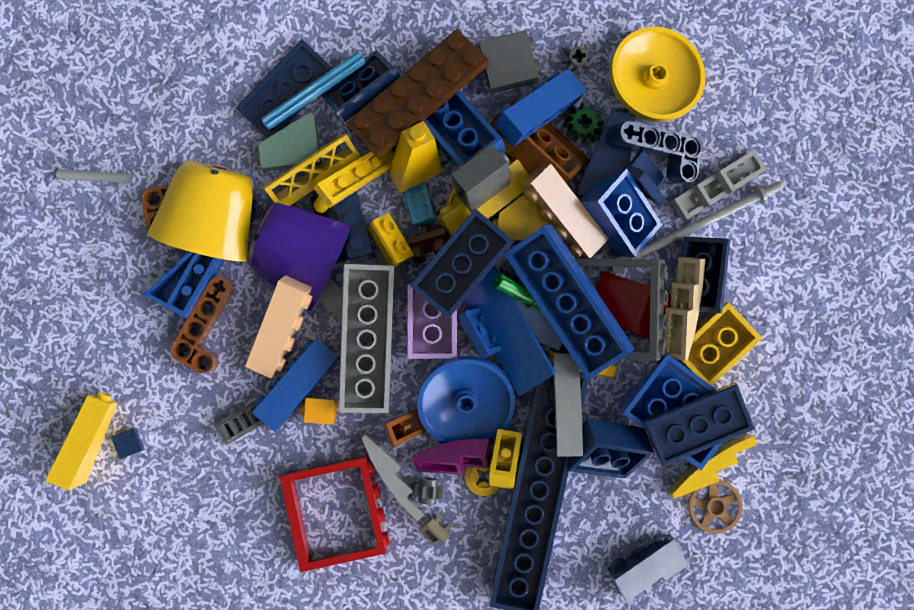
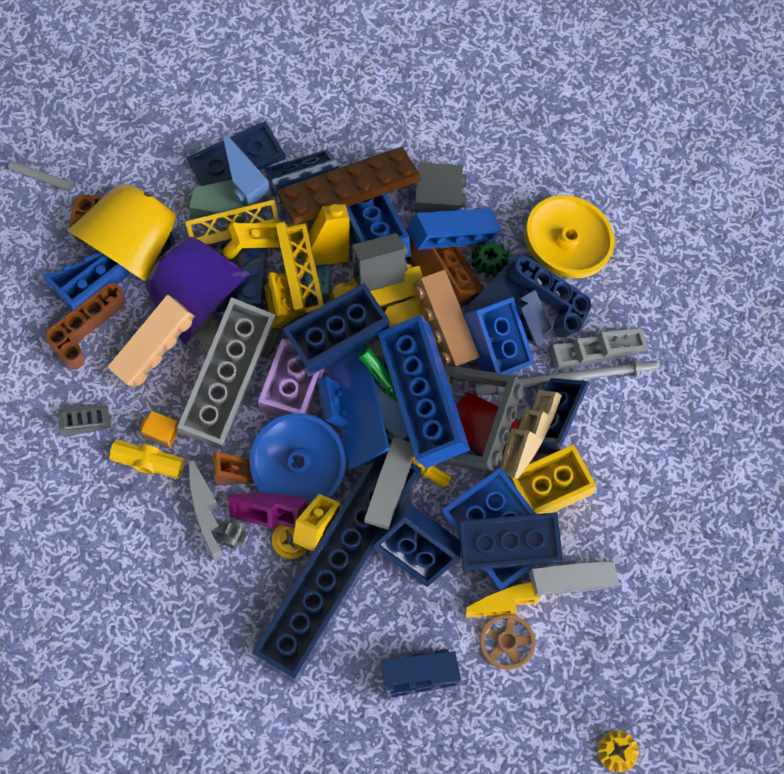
camera: 20 degrees right, 20 degrees down
(295, 385) = (153, 394): blue brick -> none
(296, 519) = (98, 519): red window -> none
(308, 120) = (247, 180): none -> medium blue slope
(313, 90) = (264, 160): dark azure axle -> none
(318, 443) = (147, 459): none -> yellow piece
(393, 210) = (290, 264): none -> yellow fence
(434, 532) = (225, 575): dark tan tile -> none
(582, 54) = (505, 199): dark grey gear -> none
(767, 434) = (573, 578): none -> light grey slope
(834, 576) = (613, 762): none -> yellow gear

